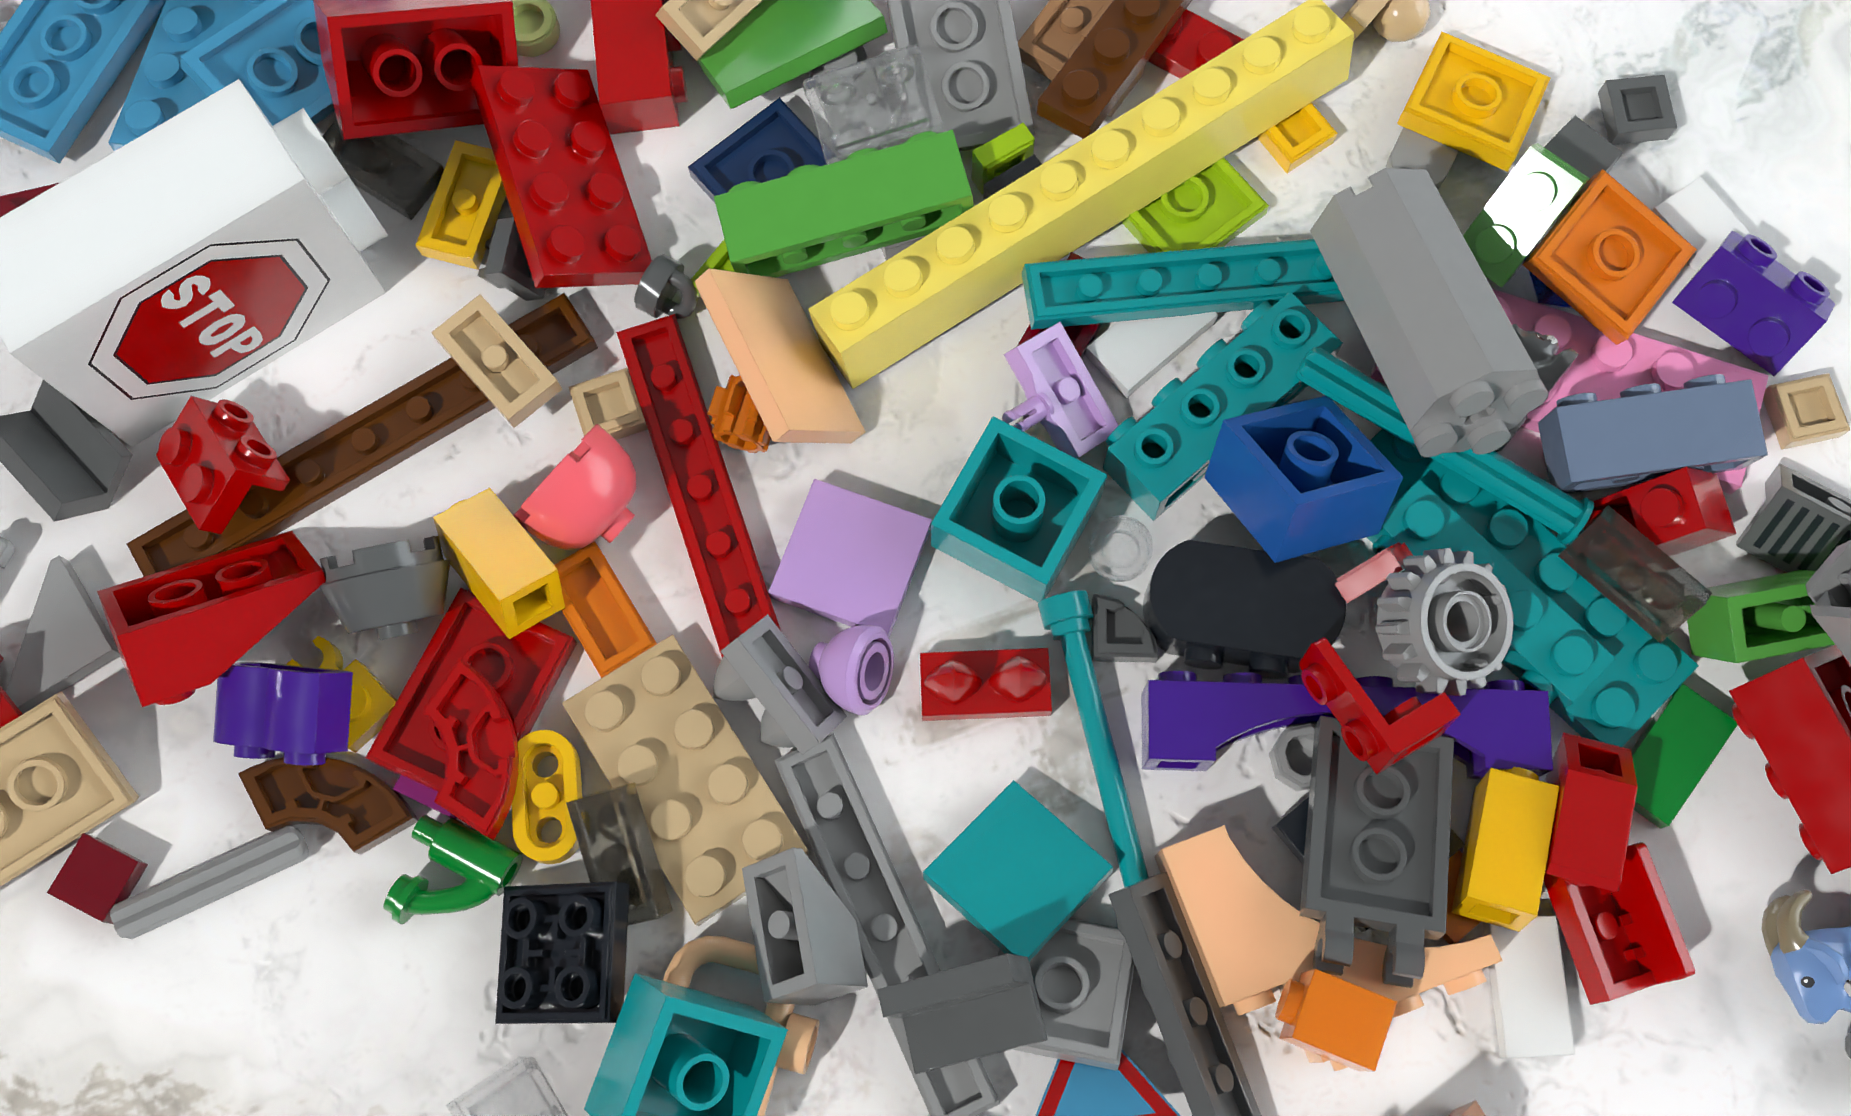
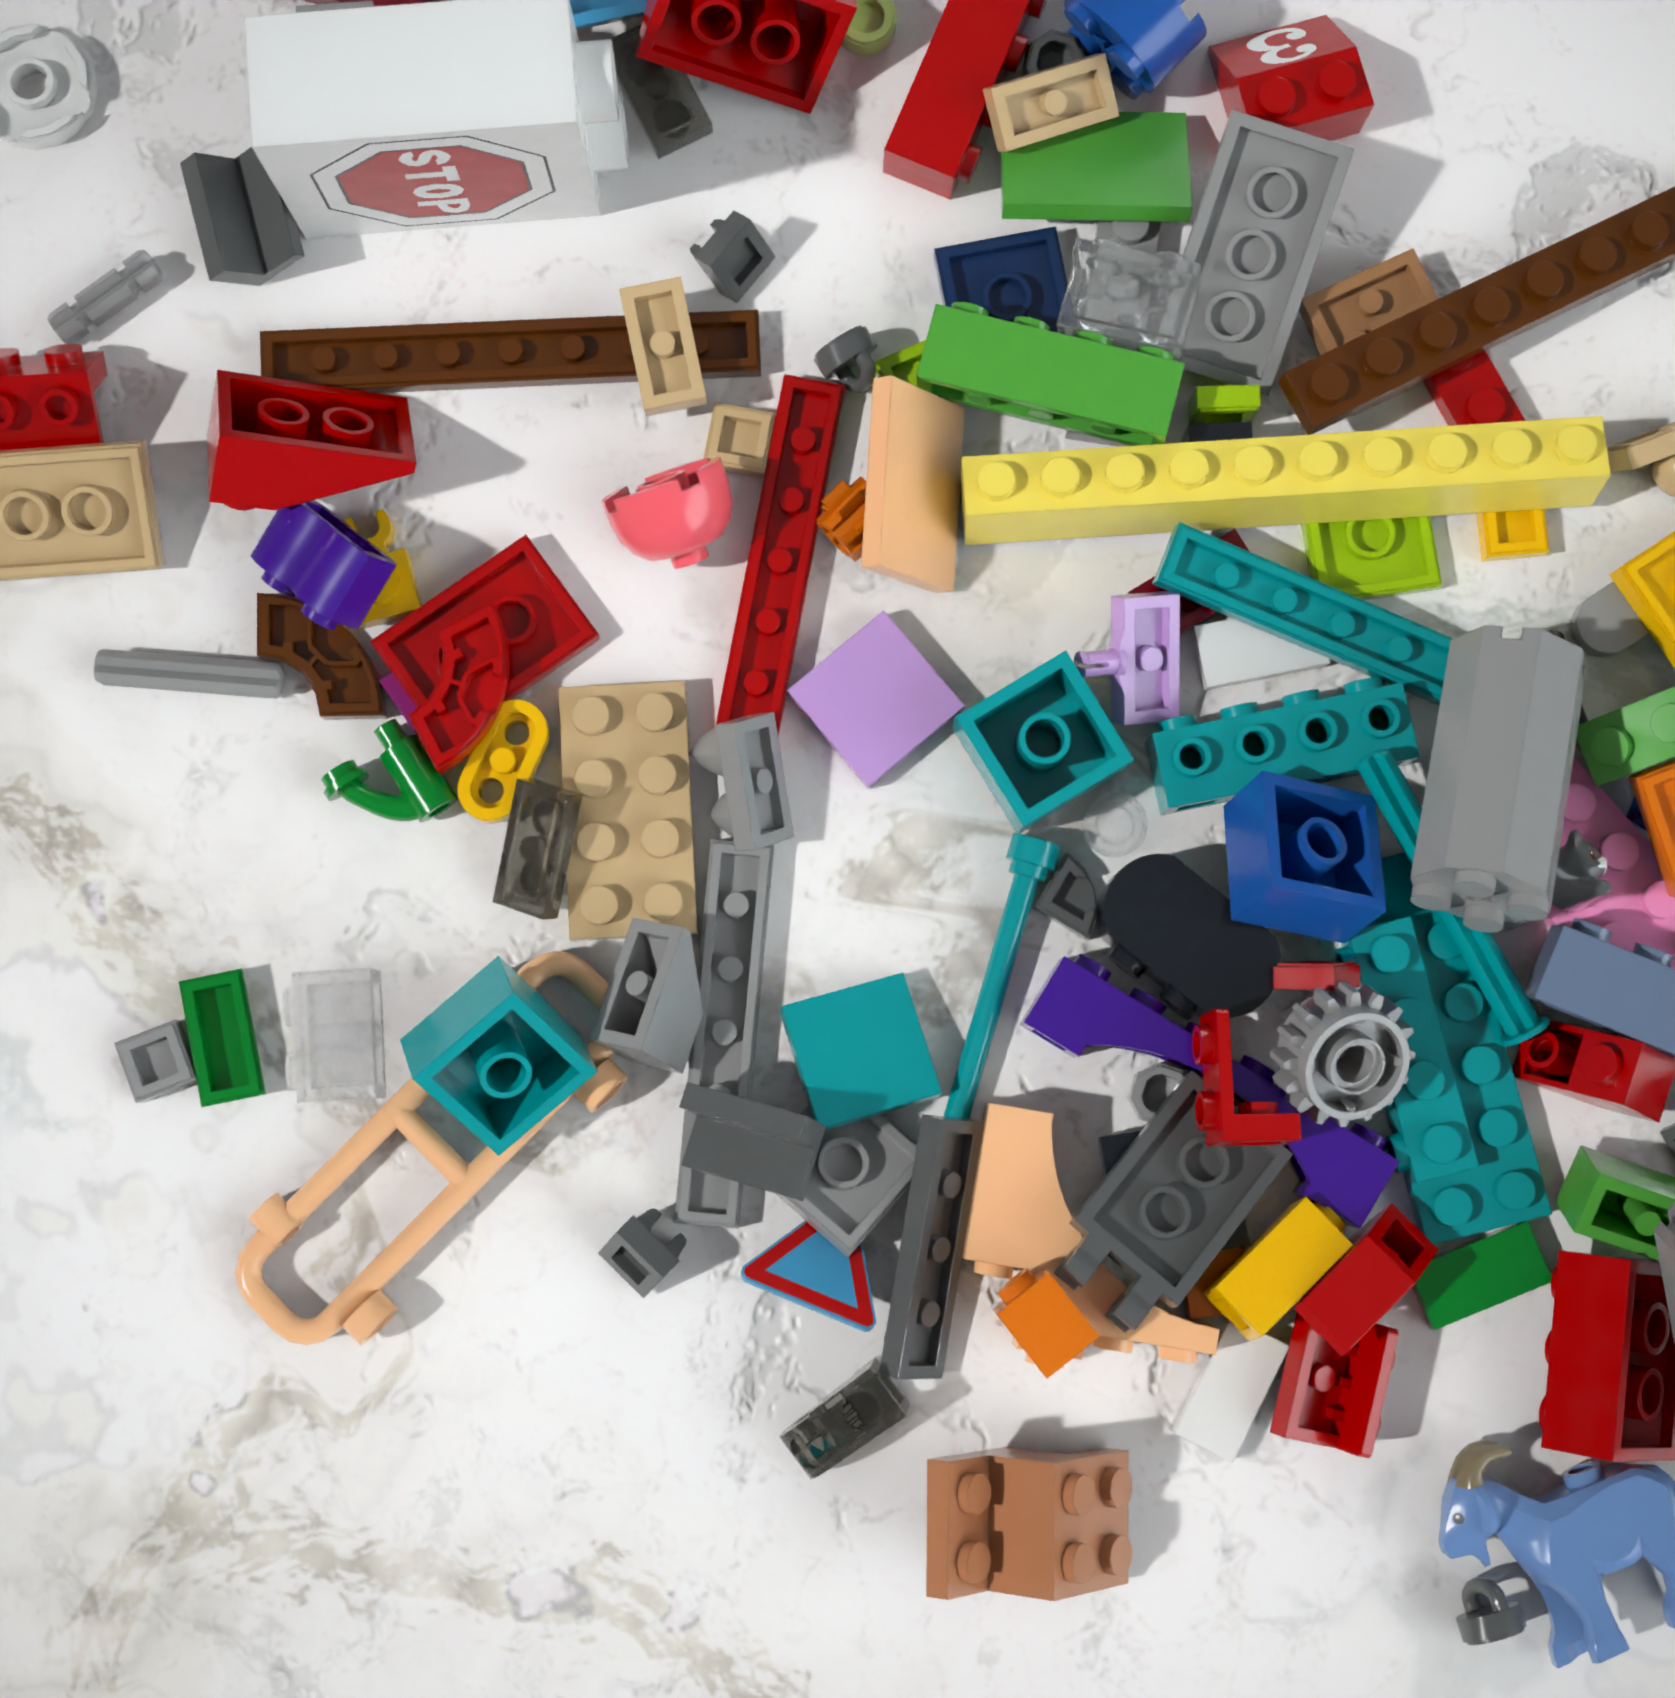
camera: 25 degrees right, 10 degrees up
(61, 641) = (165, 388): light grey tile -> none
(96, 877) = (98, 616): dark red tile -> none
(215, 459) = (375, 302): red bracket -> none
(387, 587) = (464, 504): dark grey cone -> none
(463, 207) = (715, 174): yellow plate -> none
(499, 562) = (569, 534): yellow brick -> none
(561, 176) = (814, 197): red plate -> none
(563, 953) = (448, 902): black tile -> none
(601, 610) = (633, 621): orange tile -> none
(855, 667) = (823, 800): lavender brick -> none
(985, 684) = (927, 876): red tile -> none
(1635, 574) = (1542, 1106): clear smoke plate -> none

